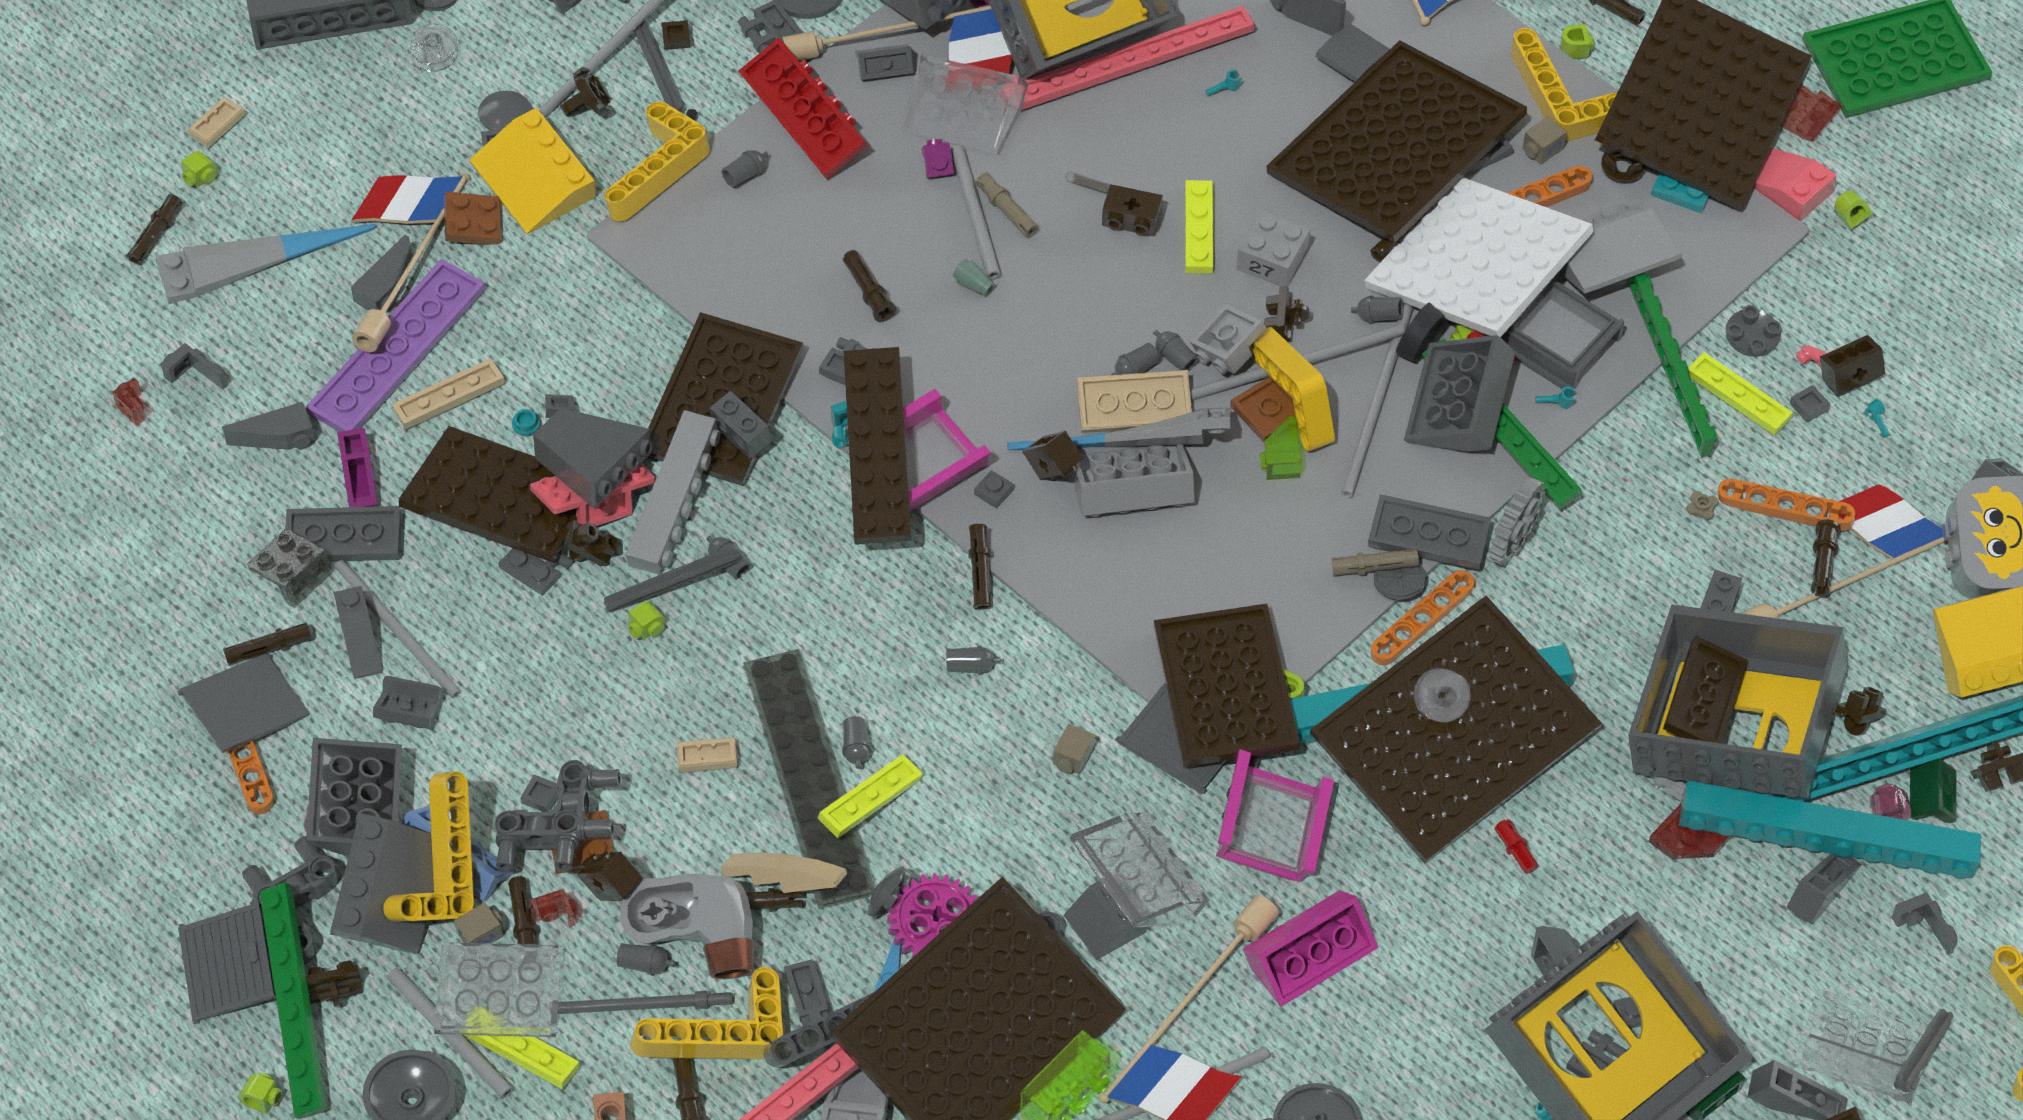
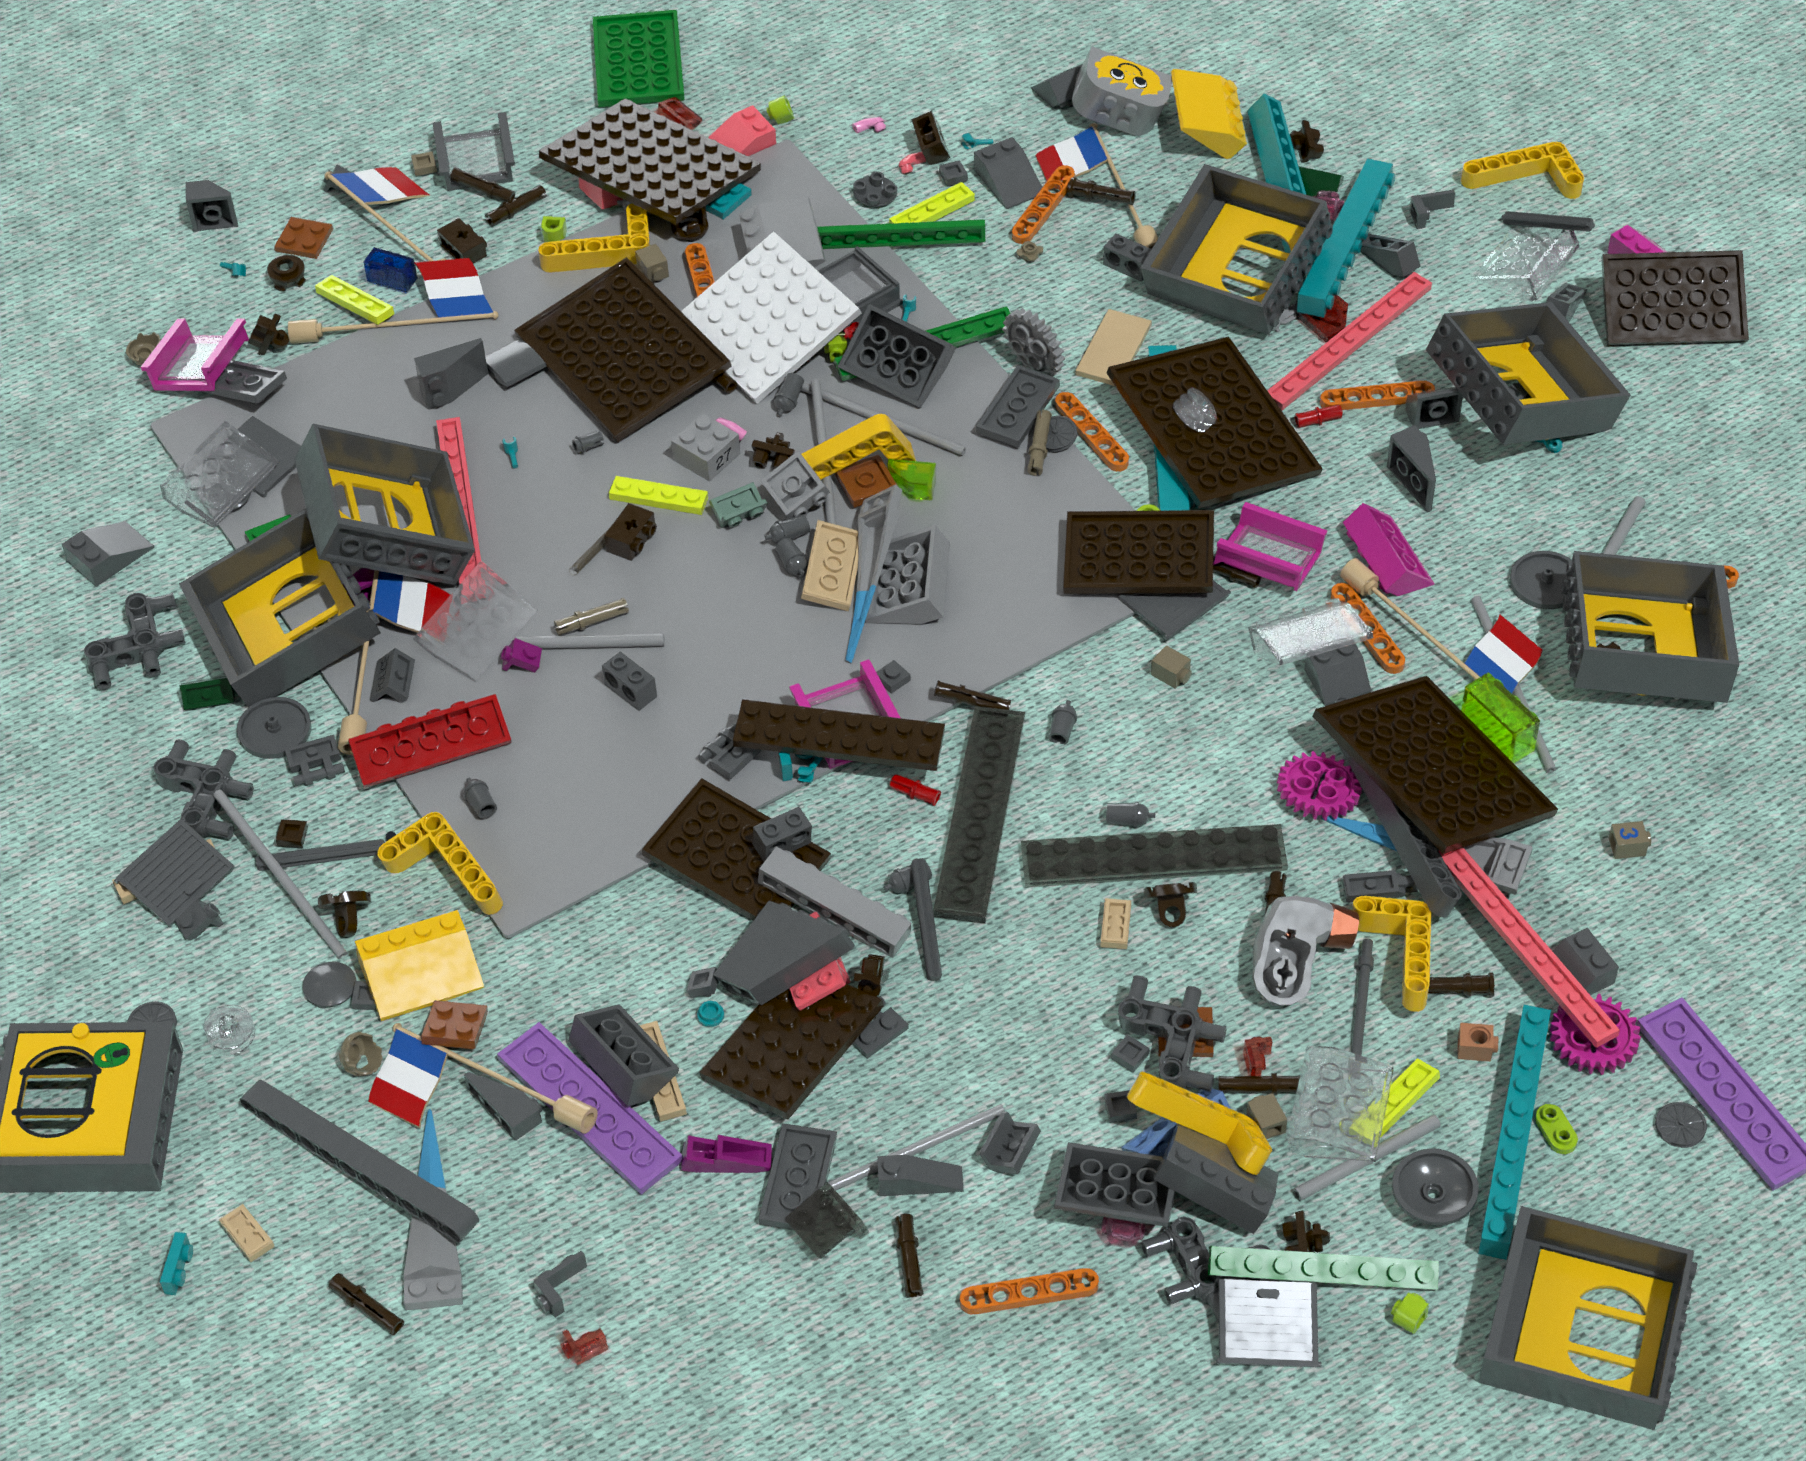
camera: 75 degrees left, 5 degrees down
(173, 78) = (174, 1272): none -> teal plate
(198, 169) = (306, 1254): lime plate -> none
(244, 702) = (976, 1279): dark grey piece -> none
(276, 429) = (660, 1216): dark grey slope -> none
(295, 180) = (360, 1161): none -> dark grey beam
(421, 145) = (354, 1047): none -> dark tan hair
(453, 354) = (622, 1053): none -> dark grey slope
(478, 795) = (1119, 1107): none -> dark grey plate
(609, 875) = (1241, 1001): dark brown brick -> none
(643, 958) = (1319, 998): dark grey piece -> none
(645, 621) = (964, 948): lime plate -> none
(745, 795) = (1168, 896): none -> dark brown tile
(791, 871) = (1259, 871): tan slope -> none
(829, 605) = (979, 815): none -> clear smoke plate
(846, 546) = (915, 789): none -> red axle
(870, 796) = (1191, 808): neon yellow plate -> none
(873, 293) = (658, 724): dark brown pin -> none
(883, 894) = (1291, 809): dark grey dish -> none
(922, 255) = (629, 681): none -> dark grey brick
(973, 277) = (663, 652): sand green cone -> none
(1053, 456) = (883, 618): dark brown brick -> none
(1181, 954) = (1379, 633): none -> orange beam
(1197, 296) = (738, 505): none -> sand green bracket
(1251, 141) = (588, 441): none -> dark grey pin
(1313, 261) = (733, 426): none -> bright pink arm
(1420, 332) = (818, 370): black tyre -> none
(1447, 952) = (1412, 464): none -> dark grey slope
(1563, 895) = (1365, 394): none -> orange beam
(1570, 618) = (1113, 343): none -> tan tile
(1658, 863) = (1349, 340): none -> coral plate
(1705, 692) = (1222, 269): dark brown plate -> none
(1826, 456) = (1007, 172): none -> dark grey slope
(1870, 304) = (867, 123): none -> bright pink arm

